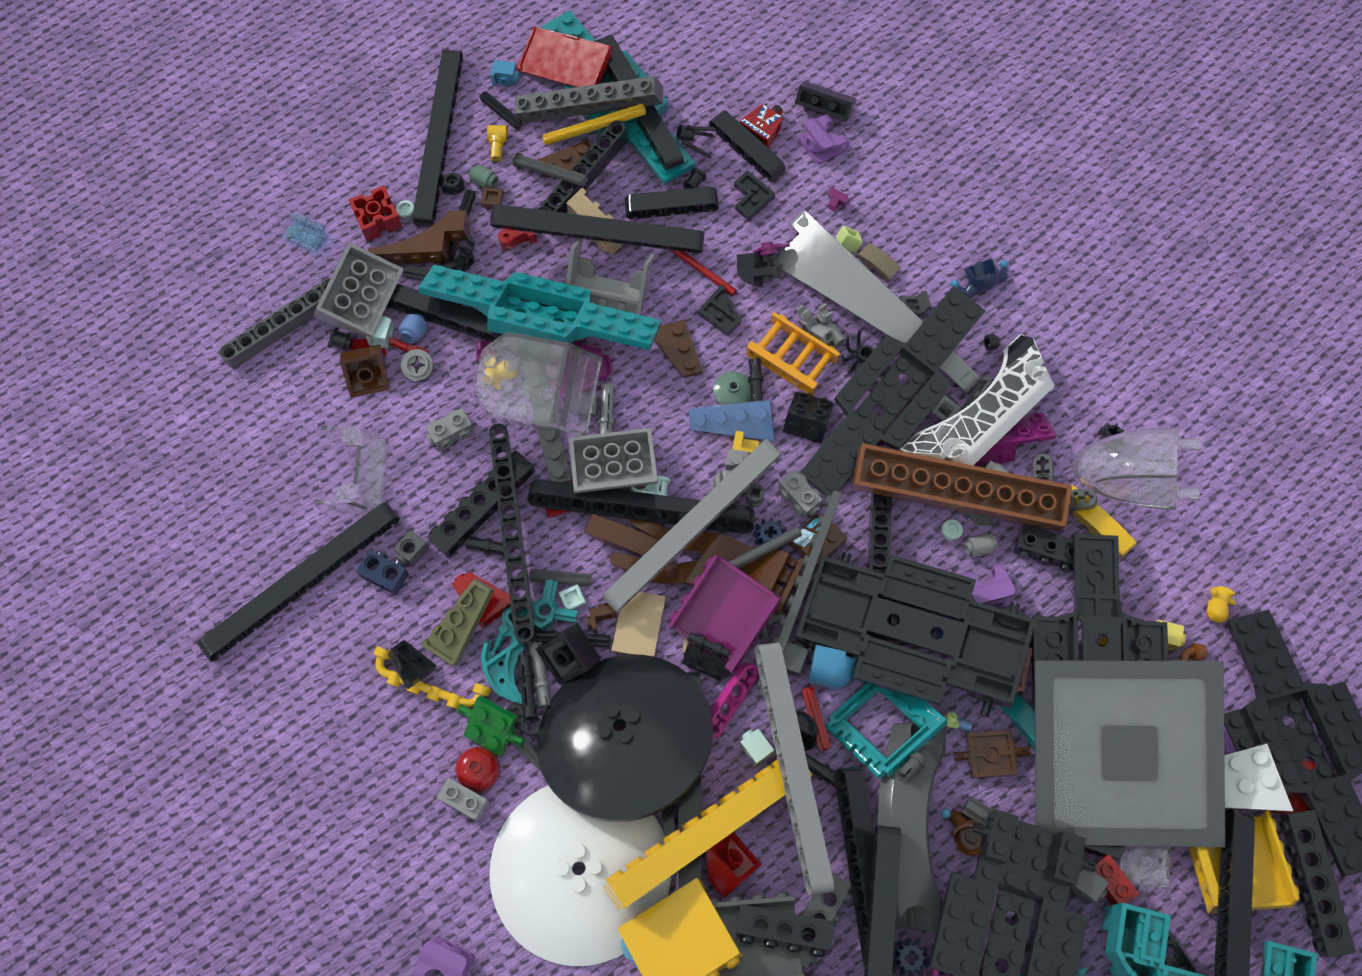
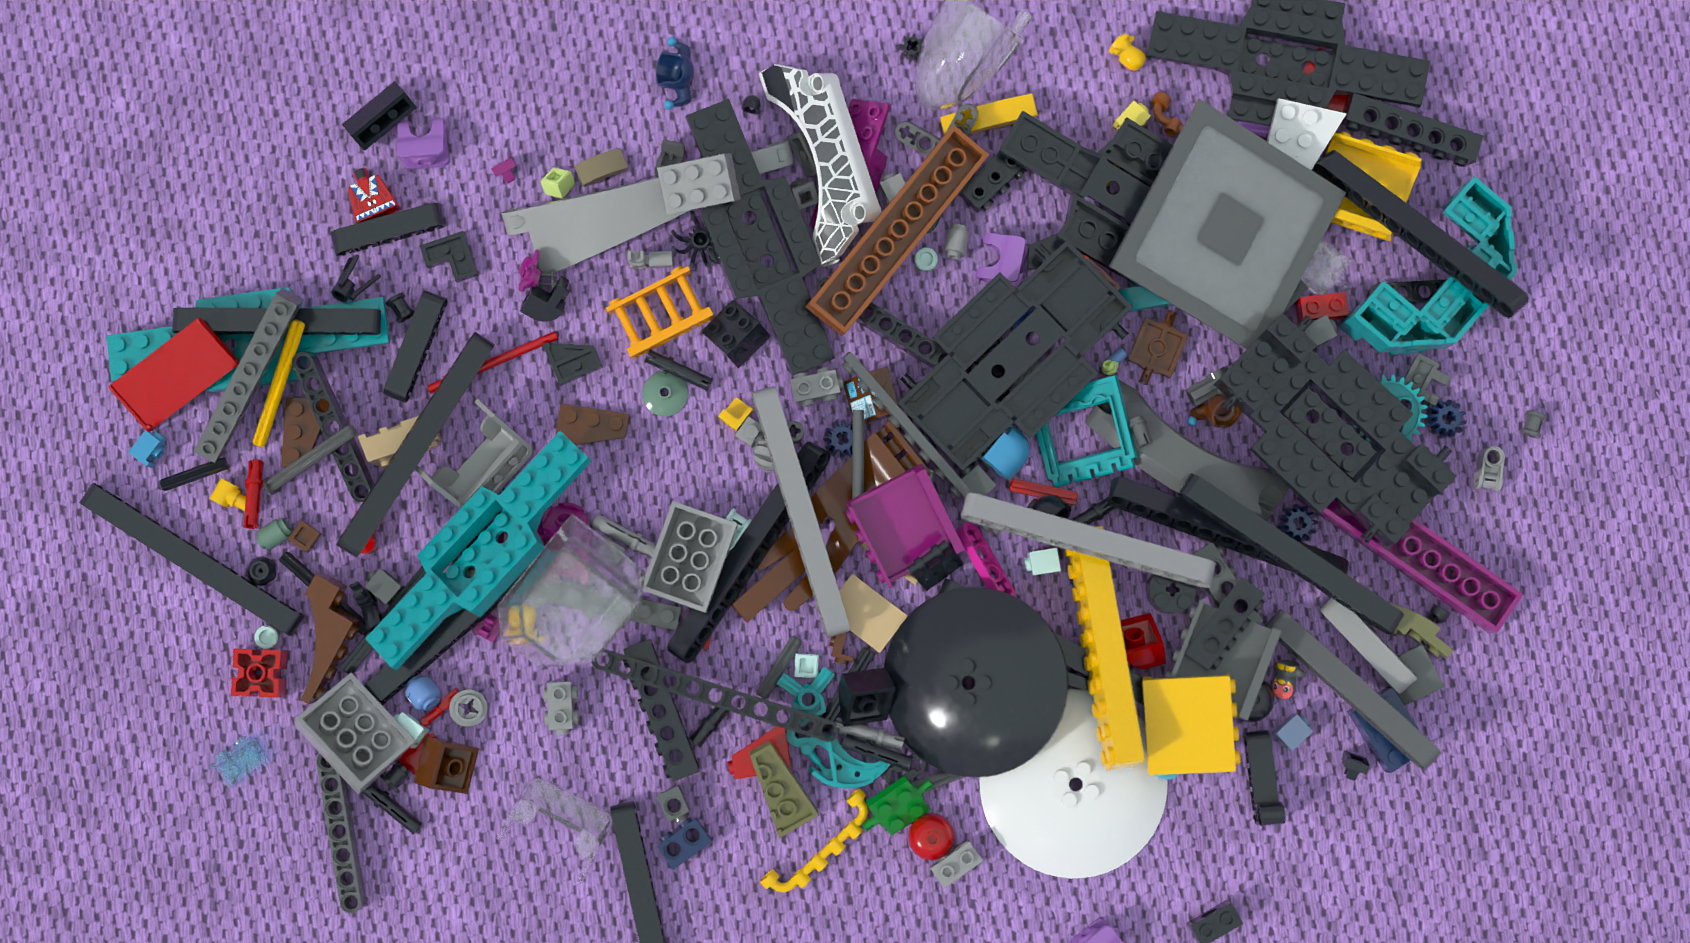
camera: 65 degrees left, 15 degrees up
(318, 340) = (391, 807): none -> black pin
(410, 663) = (795, 856): black wing -> none
(481, 263) = (384, 586): none -> dark grey brick
(505, 149) = (254, 484): none -> red pin
(748, 417) = (706, 401): medium blue wing -> none
(776, 871) = (1161, 599): none -> black brick
(812, 327) = (641, 276): light grey bar -> none
(907, 319) = (699, 183): none -> light grey piece

